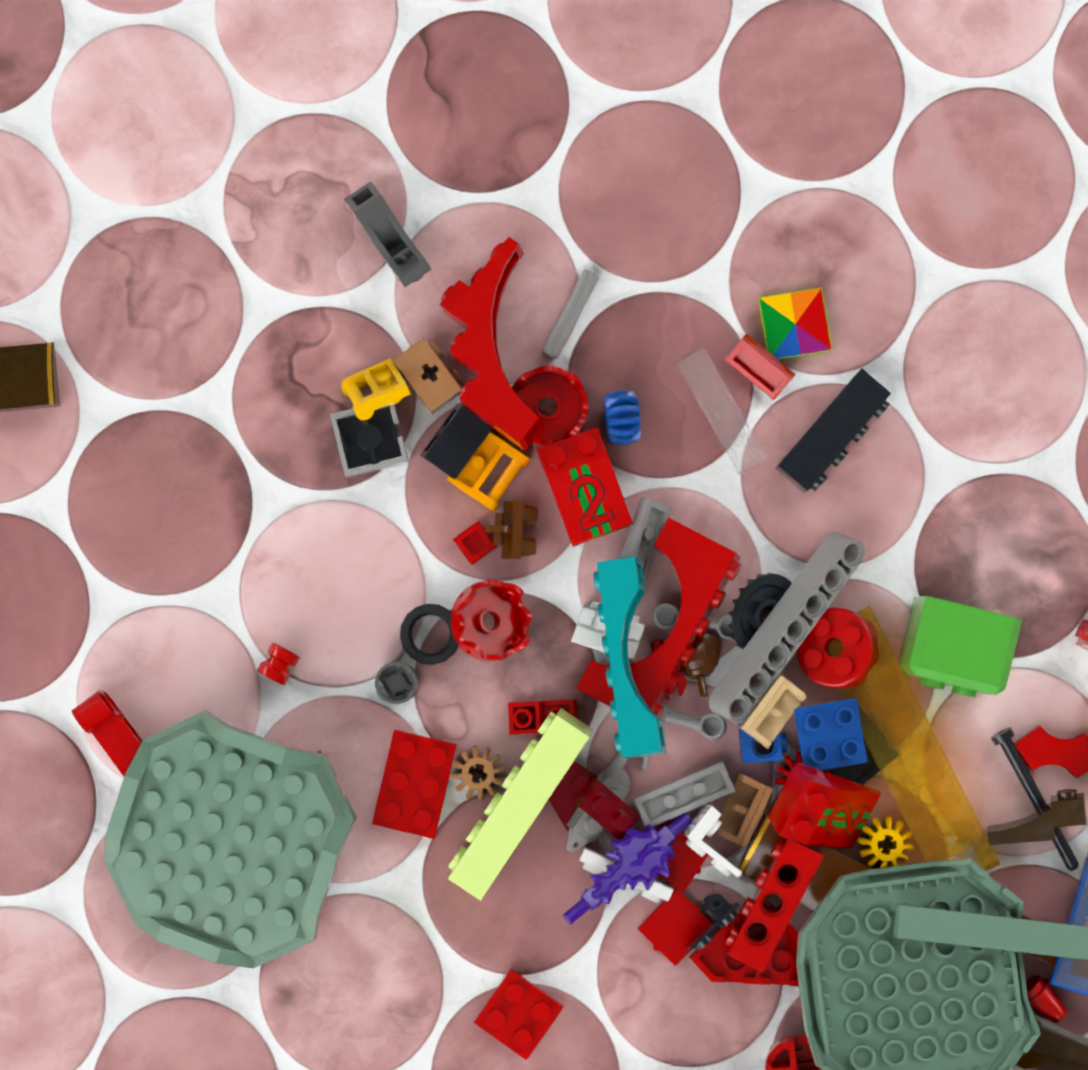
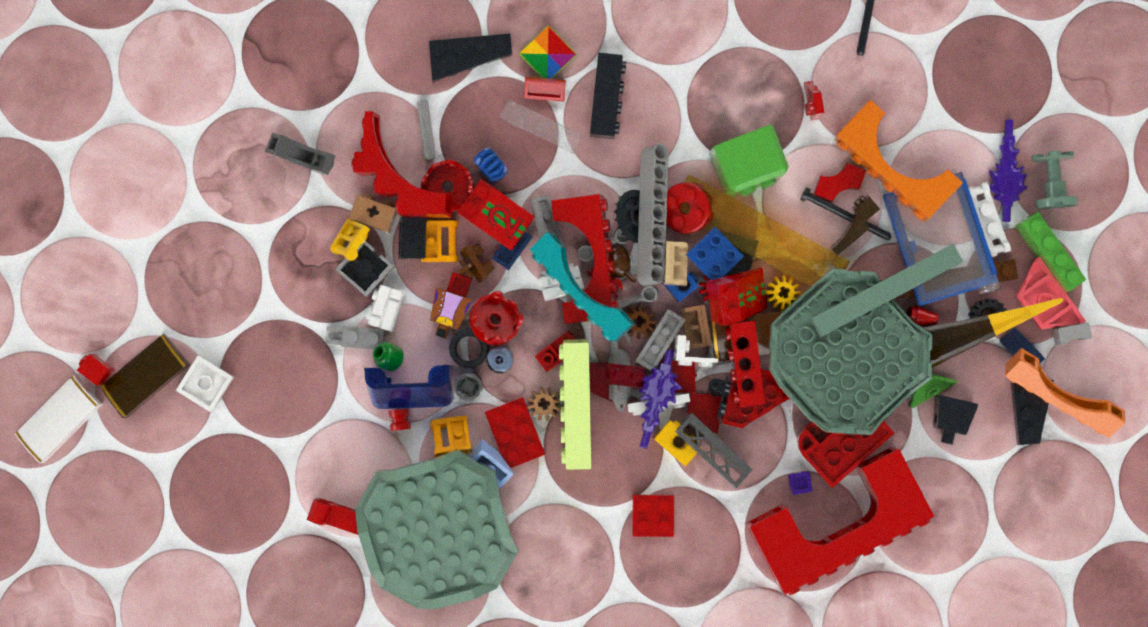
camera: 30 degrees left, 0 degrees up
(61, 444) = (205, 383): none -> white plate
(282, 622) = (435, 393): none -> clear blue windscreen
(298, 521) = (357, 337): none -> light grey hinge
(320, 573) = (388, 356): none -> green head
(339, 735) = (457, 434): none -> light orange plate
(359, 508) = (385, 308): none -> white brick
(360, 790) = (491, 457): none -> light blue slope
(438, 569) = (449, 311): none -> torso
(472, 676) = (501, 367): none -> sand blue head
(560, 550) = (507, 257): none -> dark blue plate
(616, 962) = (665, 438): none -> yellow brick
(661, 983) = (716, 446): none -> dark grey fence
(676, 763) = (634, 316): none -> reddish brown gear
(682, 247) = (466, 53): none -> black wing

